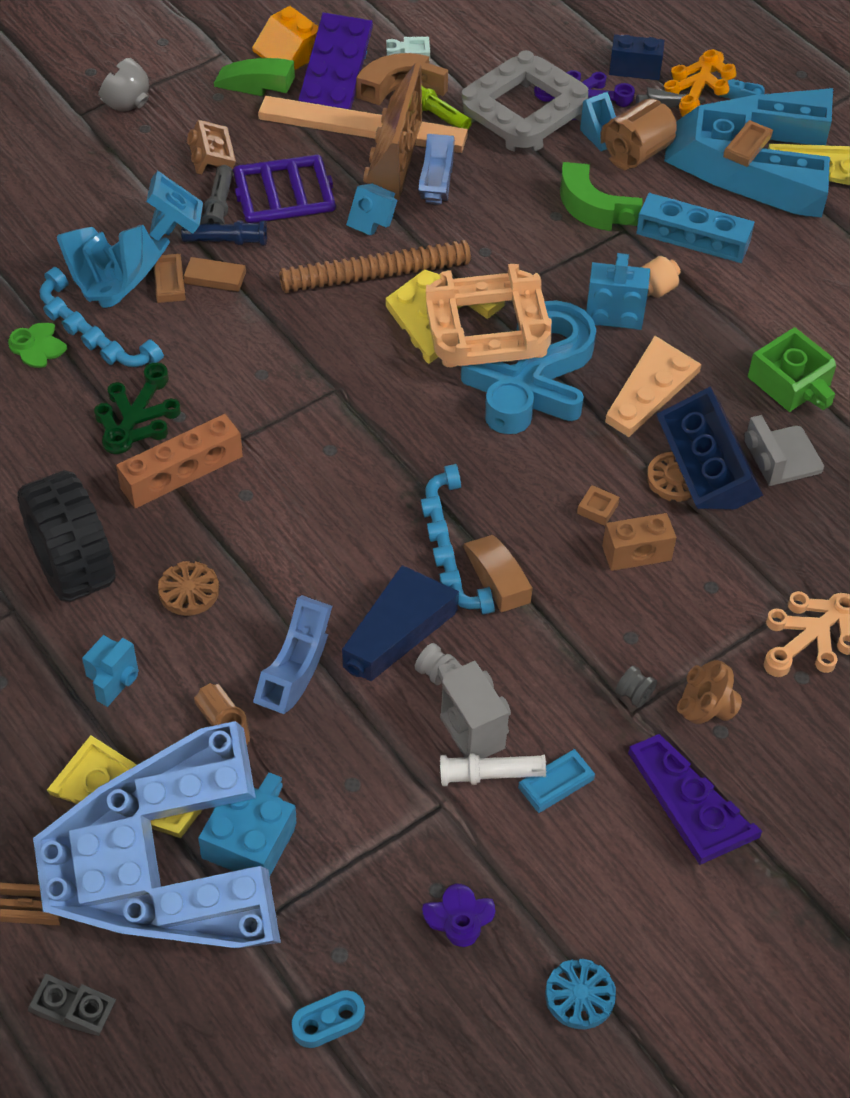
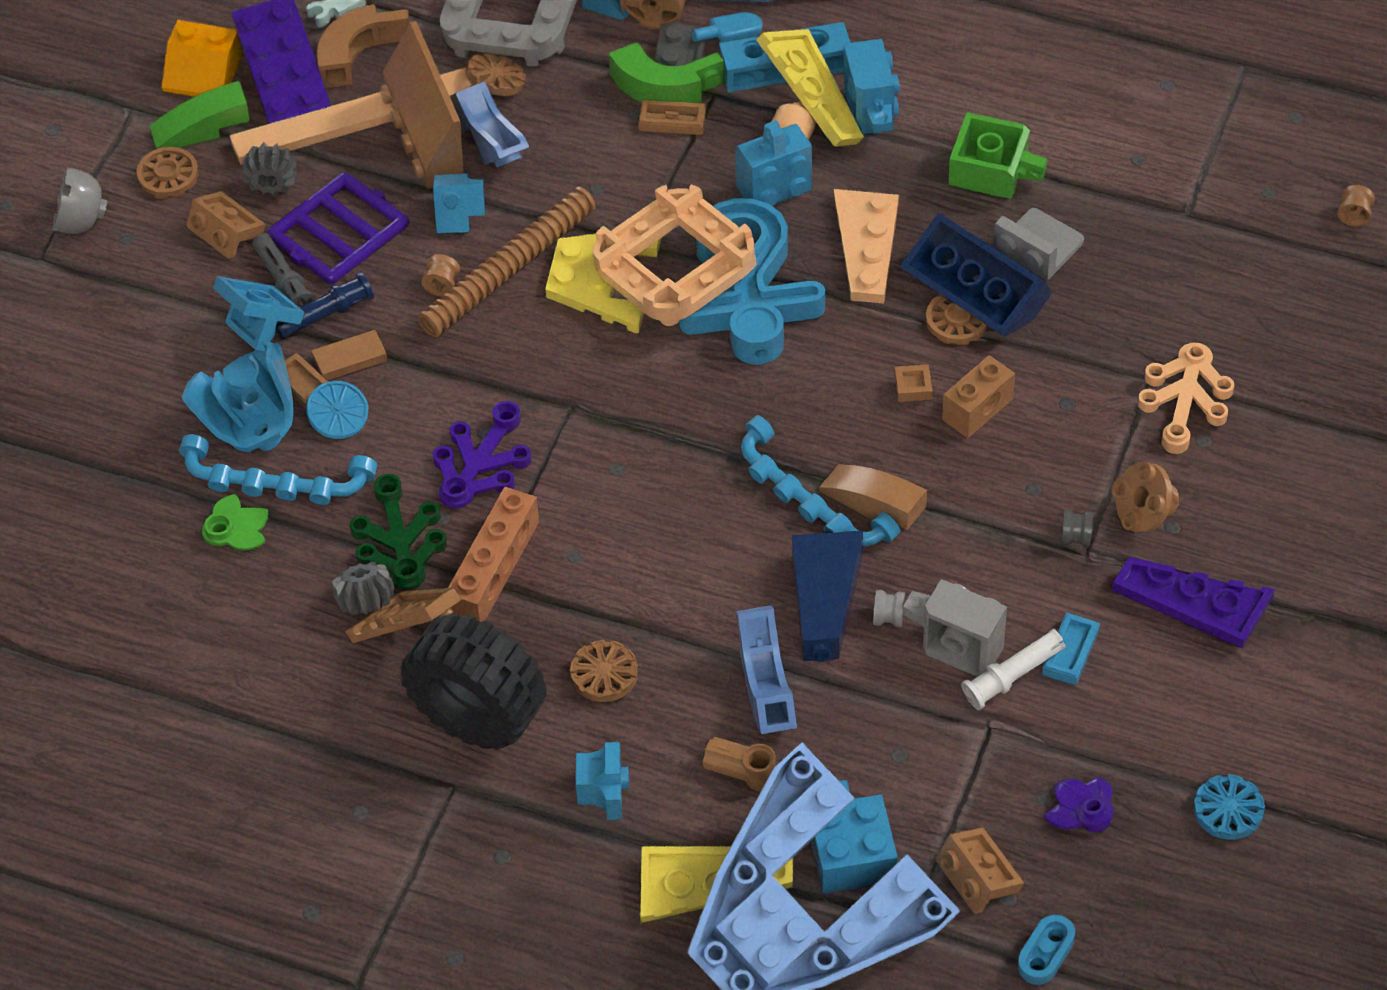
camera: 30 degrees left, 0 degrees up
(71, 432) = (363, 588): none -> dark grey gear
(77, 463) = (404, 611): none -> medium nougat wing
(172, 304) = (337, 409): none -> dark azure wheel
(205, 401) = (481, 459): none -> dark purple plant
(207, 99) = (167, 172): none -> medium nougat wheel
(266, 126) = (269, 169): none -> dark grey gear
(320, 251) = (440, 274): none -> medium nougat wheel
(331, 914) = (977, 868): none -> medium nougat bracket
(443, 110) = (443, 58): lime pin -> none
(476, 141) = (498, 73): none -> medium nougat wheel
(576, 230) = (674, 117): none -> medium nougat tile
(626, 183) = (677, 47): none -> dark grey plate
(671, 189) = (730, 28): none -> dark azure piece
(693, 244) = (809, 77): none -> light yellow wing
(738, 274) = (870, 85): none -> dark azure hinge

